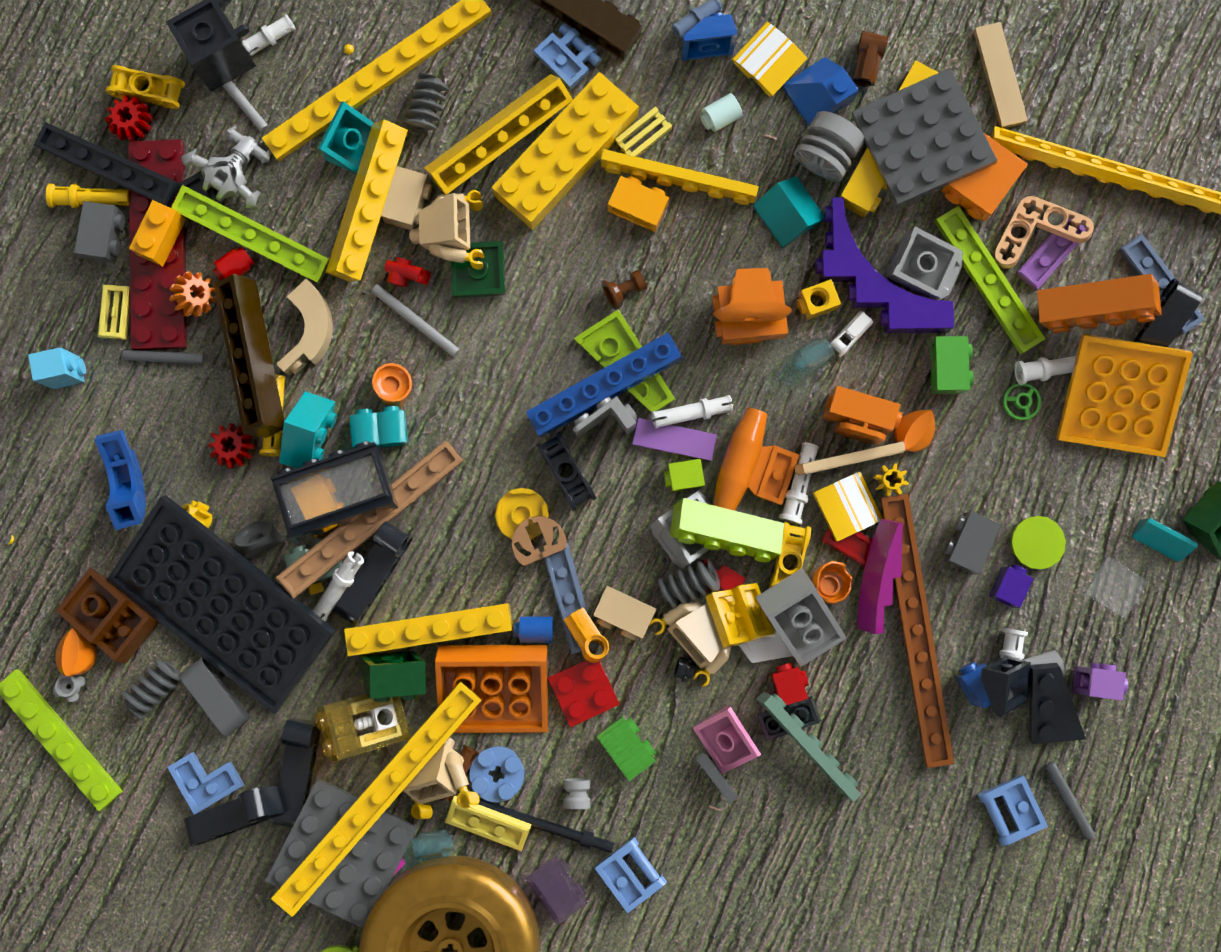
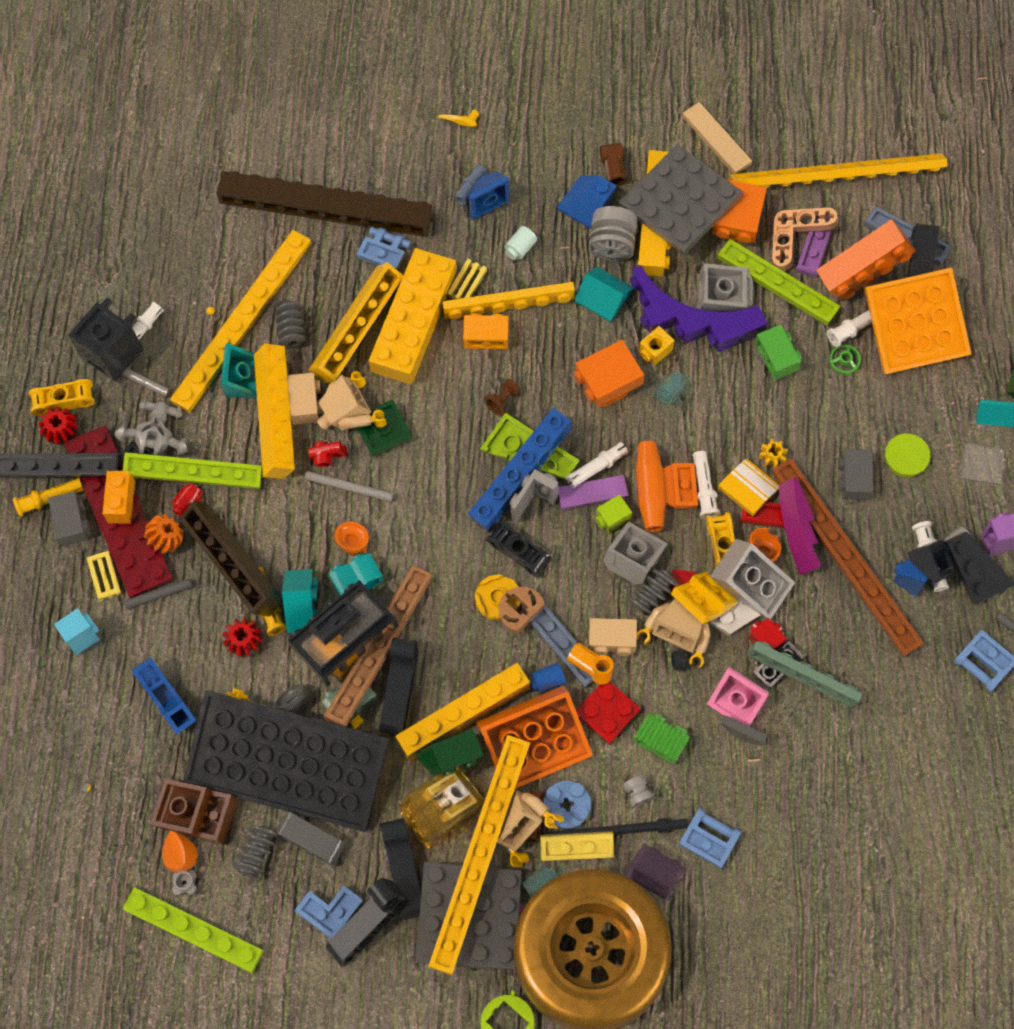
camera: 20 degrees left, 15 degrees down
(317, 329) = (266, 508): tan arch -> none
(326, 480) = (334, 621): none -> black plate
(342, 578) = (377, 698): white pin -> none
(726, 530) = (664, 537): brick -> none
(752, 299) = (606, 357): orange piece -> none
(769, 58) = (538, 192): yellow slope -> none
(850, 458) = (733, 449): tan tile -> none
(852, 331) = (693, 360): white bar -> none
(861, 415) = (727, 413): orange brick -> none
(916, 430) = (775, 411): orange piece -> none
(1011, 586) = (902, 494): dark purple brick -> none

